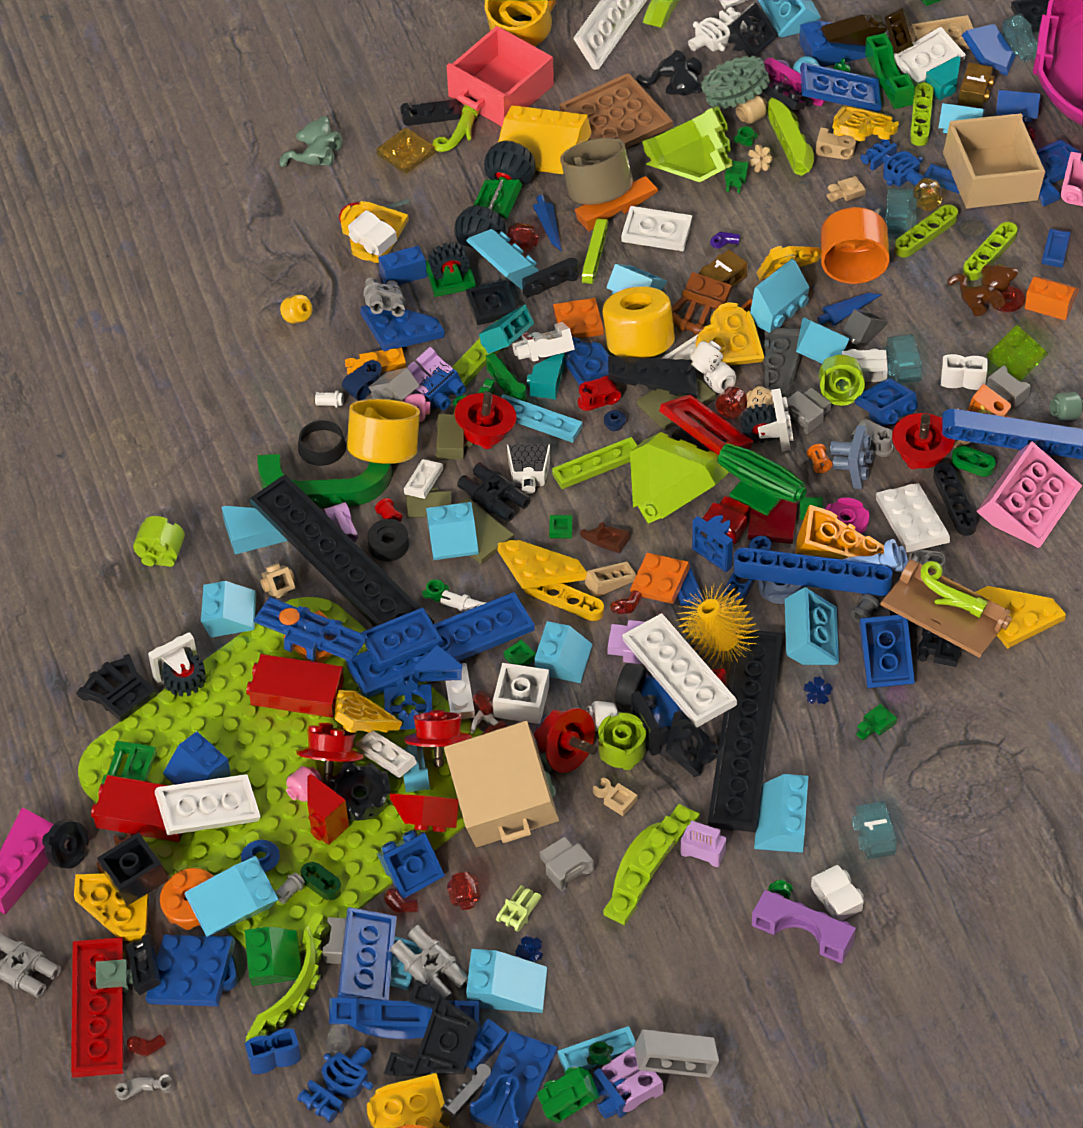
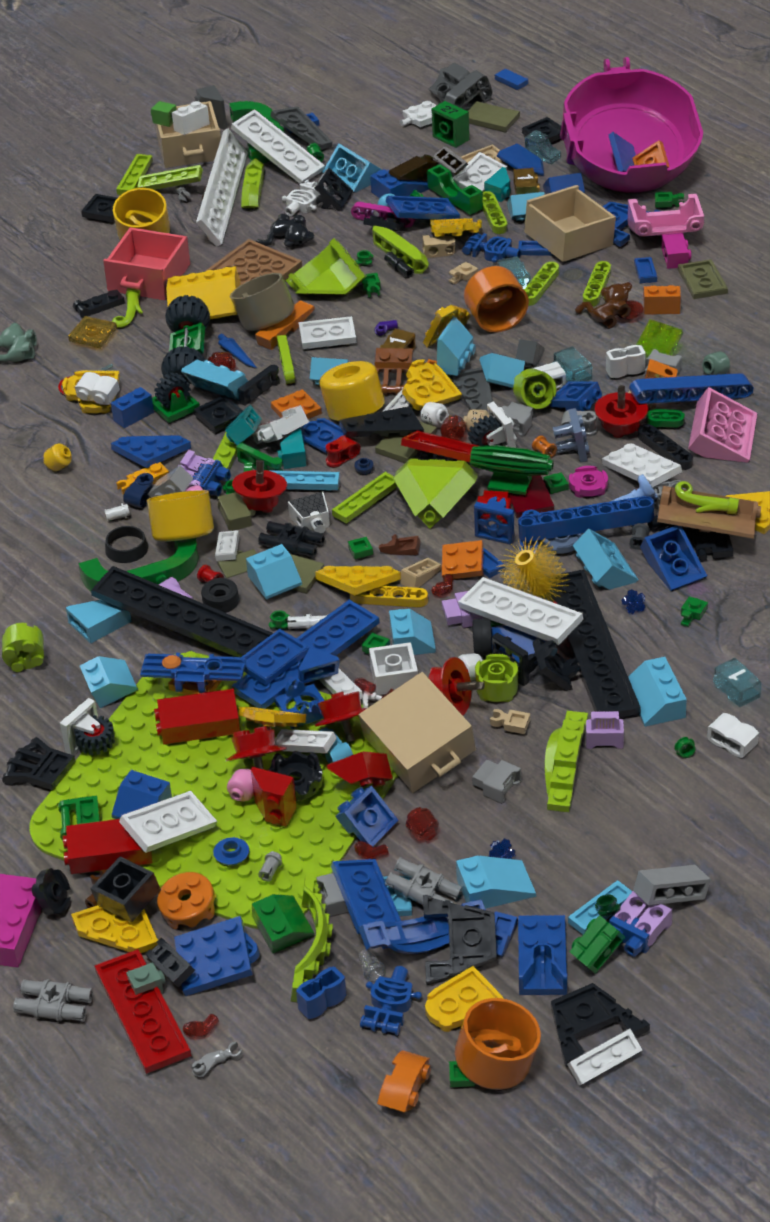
camera: 20 degrees left, 10 degrees down
(231, 896) = (227, 882): medium azure slope -> none
(285, 582) = (141, 645): tan brick -> none
(318, 883) = (295, 853): dark green beam -> none
(384, 297) = (130, 428): light grey pin -> none
(465, 1095) = (508, 970): plate -> none
(518, 908) = (474, 826): yellowish green arm -> none
(706, 357) = (420, 398): white head -> none
(735, 82) = (339, 221): sand green piece -> none
(752, 110) = (359, 238): tan head -> none
(761, 158) = (384, 268): tan plant -> none
(778, 913) = (743, 764): medium lavender arch -> none
(779, 157) = (398, 264): none -> black pin
(830, 538) = (577, 492): light orange wedge -> none
(841, 310) = (509, 345): blue bar -> none
(928, 194) = (530, 258): clear yellow head -> none

